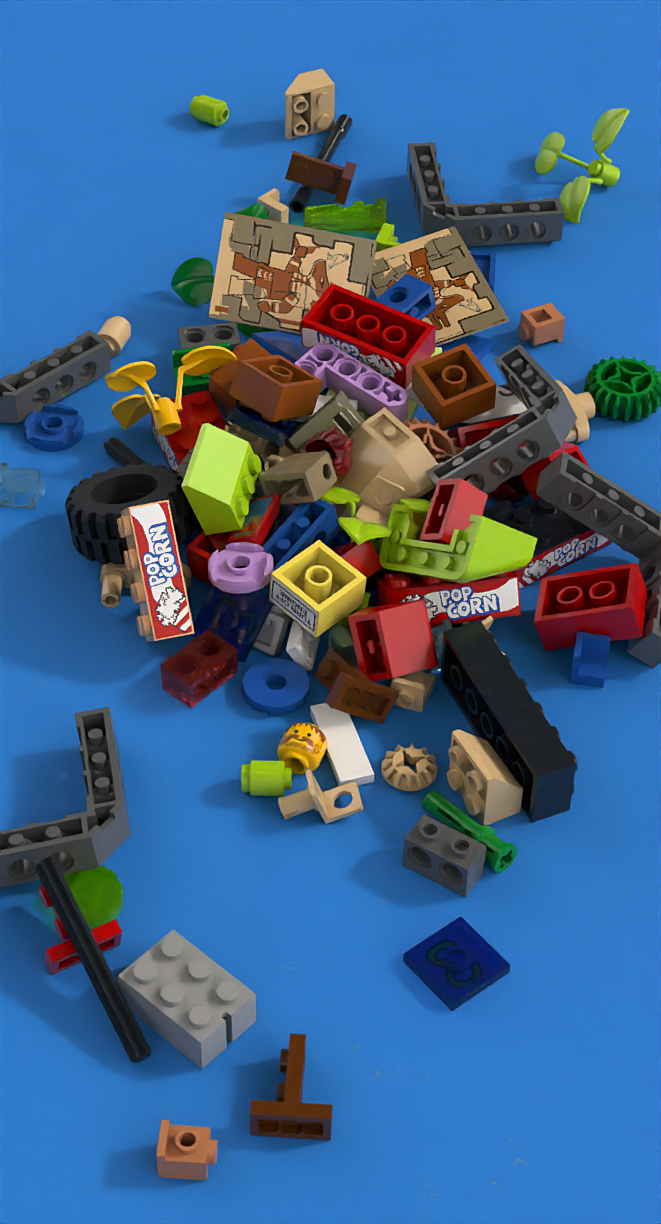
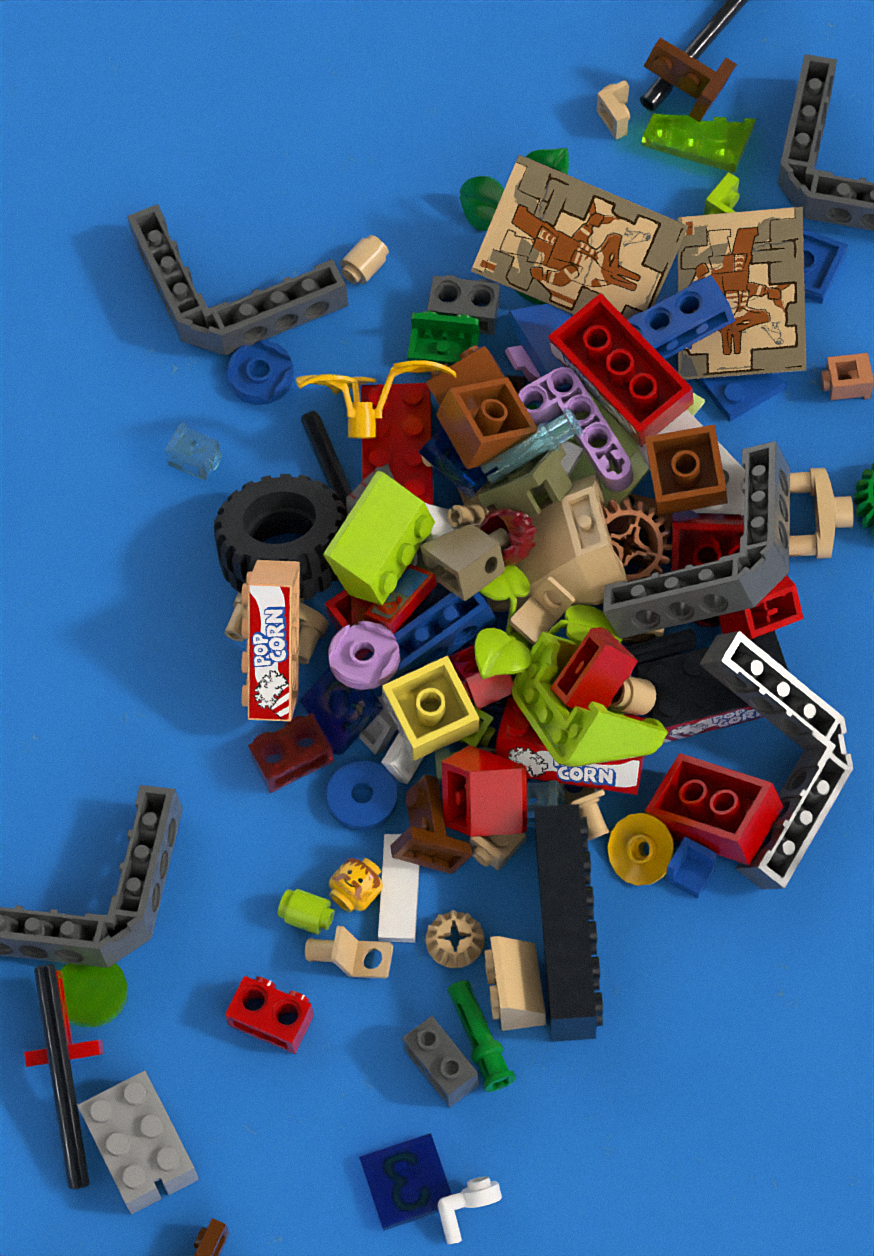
camera: 25 degrees right, 20 degrees up
(268, 864) = (264, 1021): none -> red brick
(332, 382) = (547, 437): none -> clear light blue pin
(529, 946) = (477, 1194): none -> white plate
(532, 645) = (627, 852): none -> yellow dish

